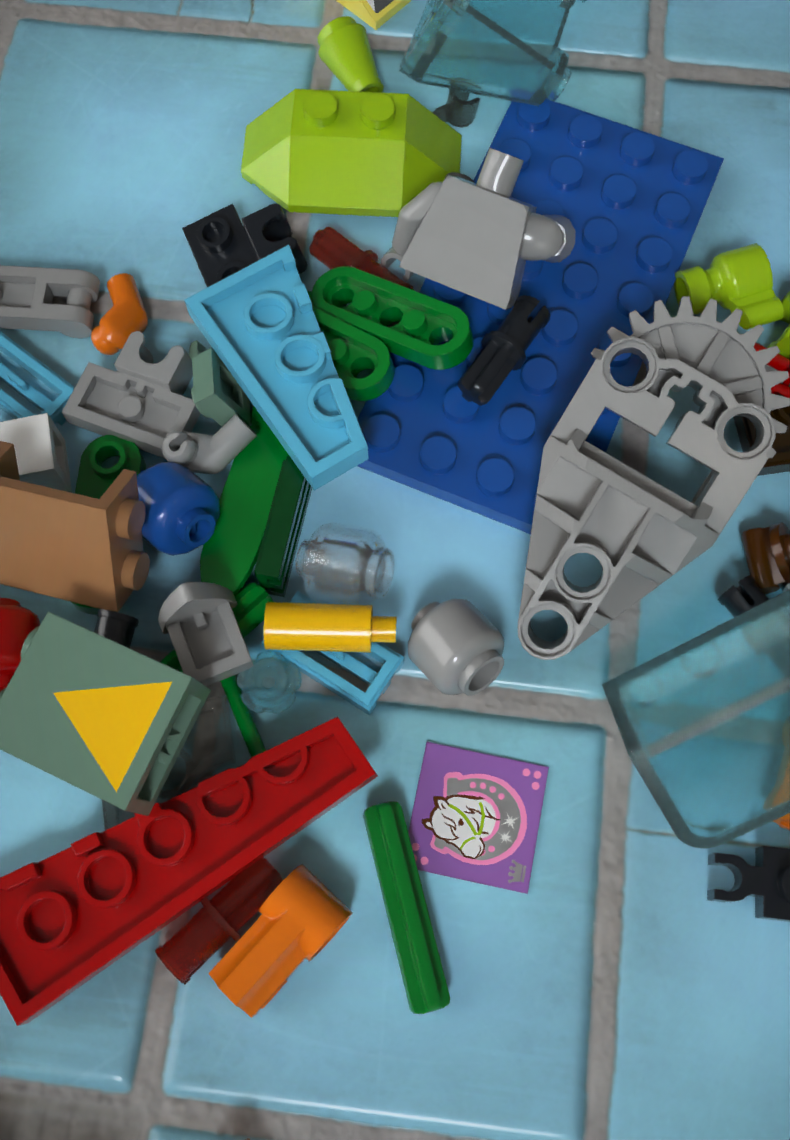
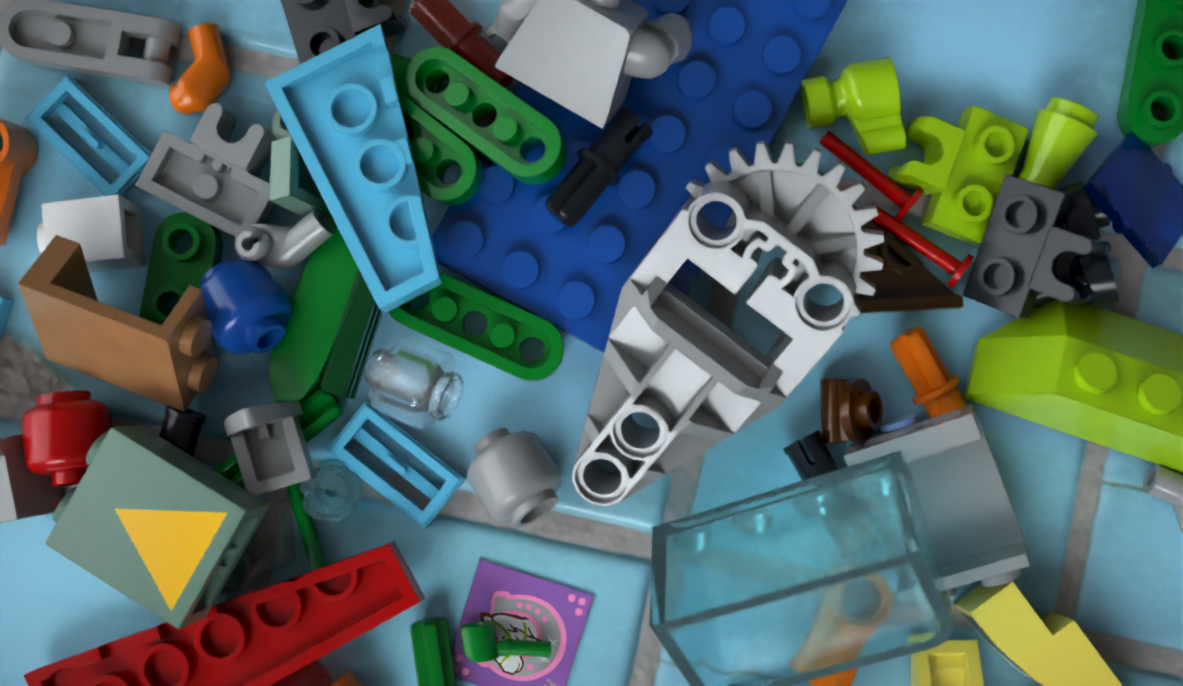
camera: 10 degrees right, 15 degrees up
(325, 627) = (386, 448): yellow cylinder -> none
(429, 505) = (503, 337): none -> green plate
(439, 823) = (481, 643): none -> green hand

